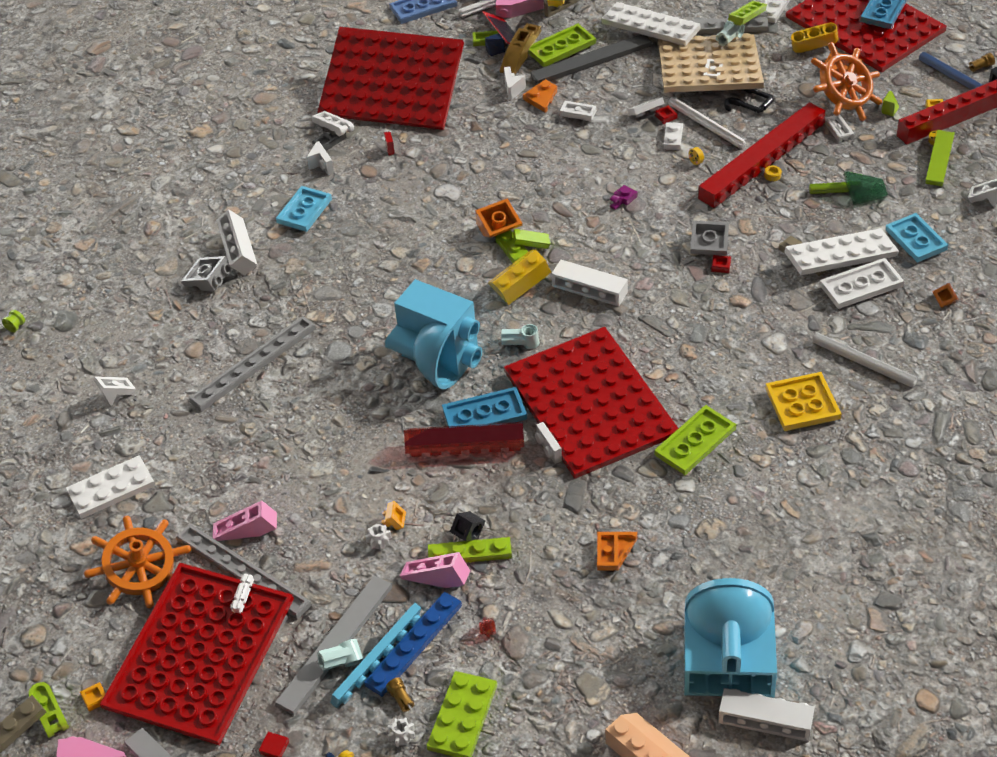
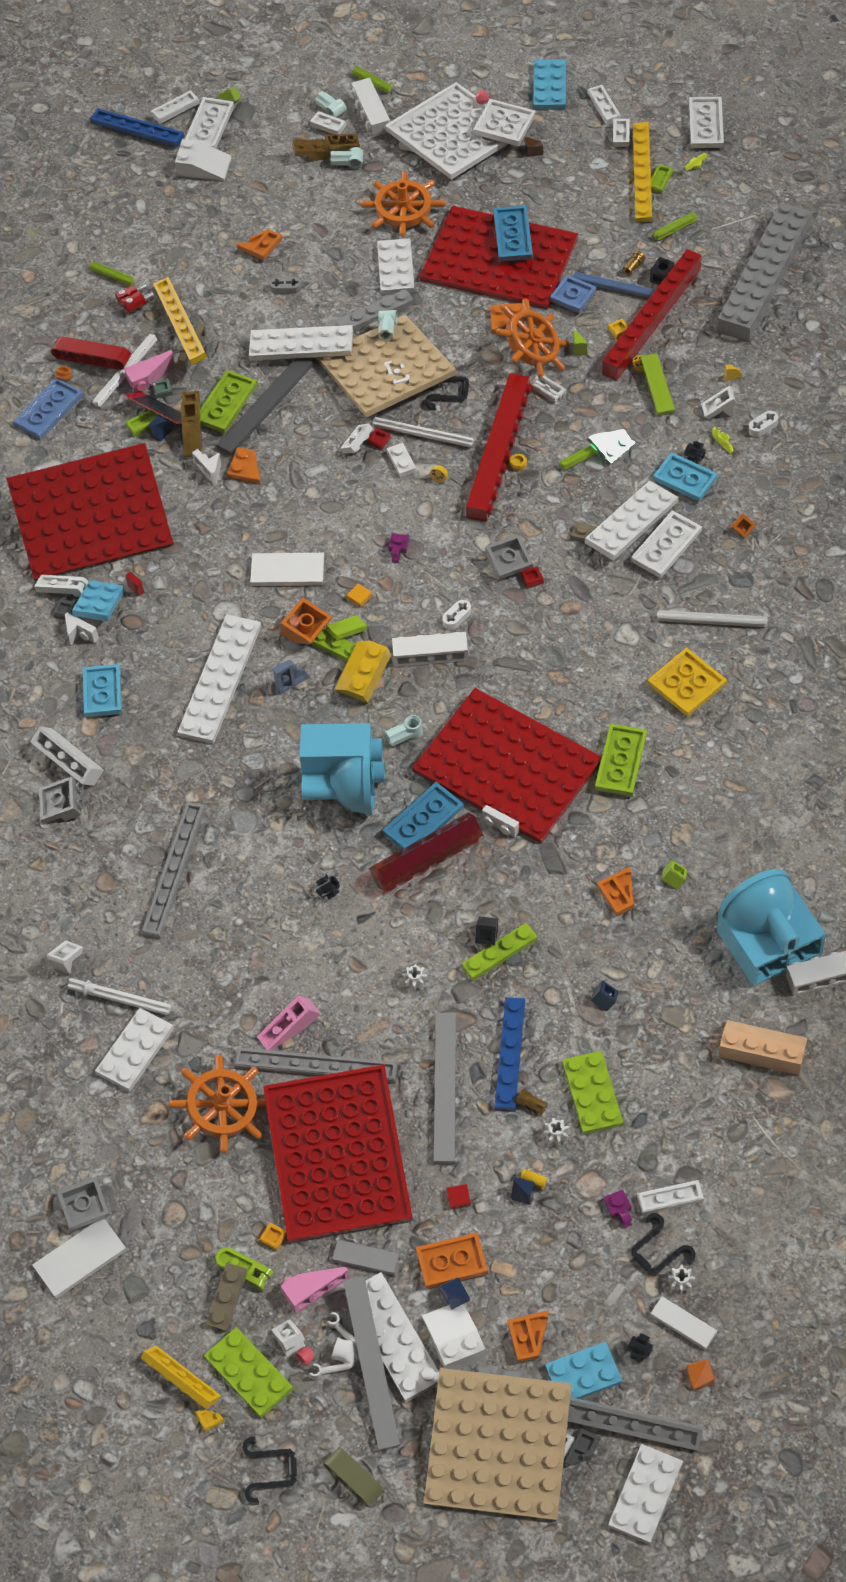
camera: 30 degrees left, 10 degrees up
(113, 421) = (89, 988): none -> white axle
(242, 593) = (342, 1084): white axle -> none
(346, 653) = (463, 1093): light aqua piece -> none
(350, 143) = (98, 600): none -> medium azure plate
(361, 429) = (327, 886): none -> black gear
(371, 661) = (489, 1087): medium azure plate -> none
(394, 516) = (416, 952): light orange tile -> none
(401, 238) = (219, 679): none -> white plate
(438, 571) = (486, 983): bright pink slope -> none
(455, 254) = (288, 676): none -> sand blue wing
(487, 627) = (562, 1009): clear red plate -> none
(518, 179) = (287, 569): none -> white tile
(519, 20) = (162, 388): none -> sand green tile
(535, 633) = (604, 995): none -> dark blue slope
(562, 220) = (359, 595): none -> light orange tile
(578, 110) = (293, 470): white plate -> none
(633, 266) = (455, 613): none -> white beam
(676, 558) = (674, 874): none -> lime slope
(747, 12) = (392, 295): lime plate -> none
(814, 37) = (464, 304): yellow beam -> none
(910, 67) = (573, 294): none -> medium blue plate
(938, 220) = (695, 451): none -> black gear
(973, 221) = (723, 439): none -> neon yellow piece

